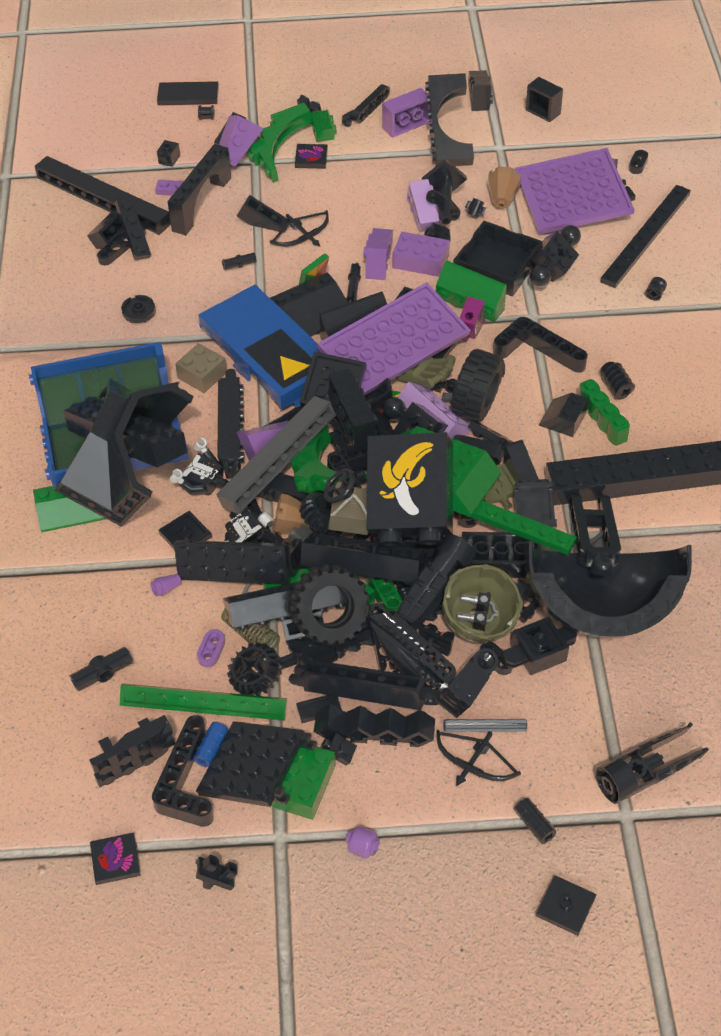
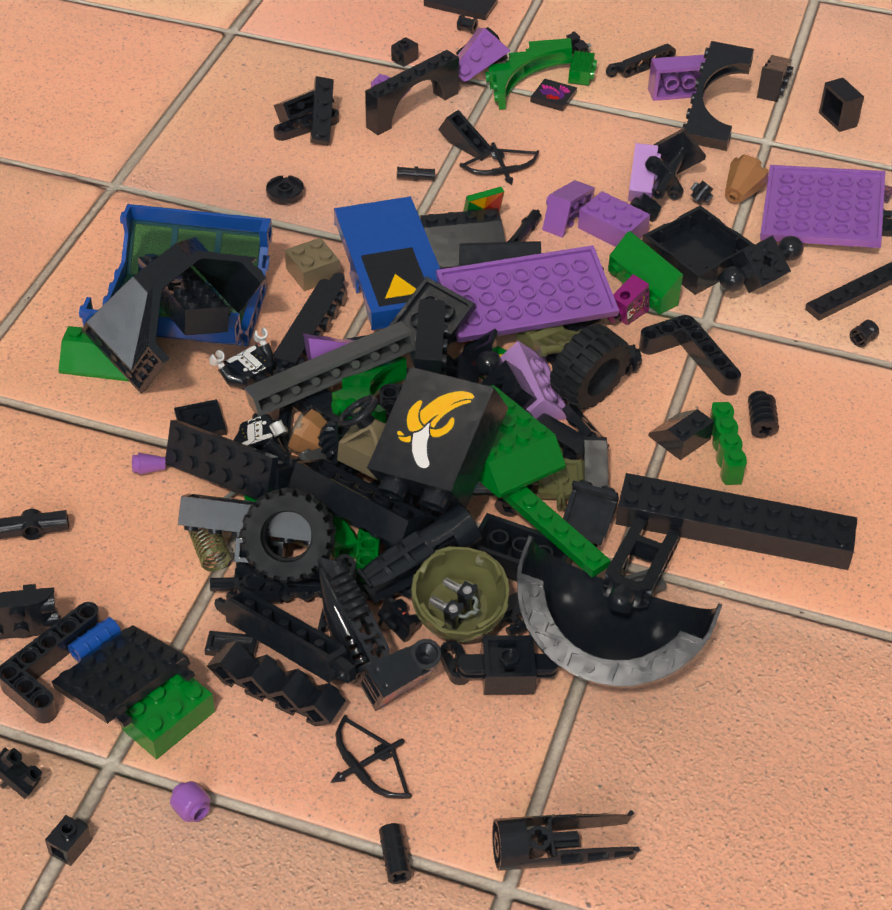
camera: 20 degrees right, 5 degrees down
(99, 192) = (308, 66): black brick -> none
(203, 701) = (114, 594): green plate -> none
(210, 649) = (152, 545): medium lavender plate -> none
(260, 657) = (182, 579): black gear -> none
(286, 908) = (68, 840): none -> black brick
(342, 747) = (226, 694): black bracket -> none
(485, 725) = (401, 729): axle -> none

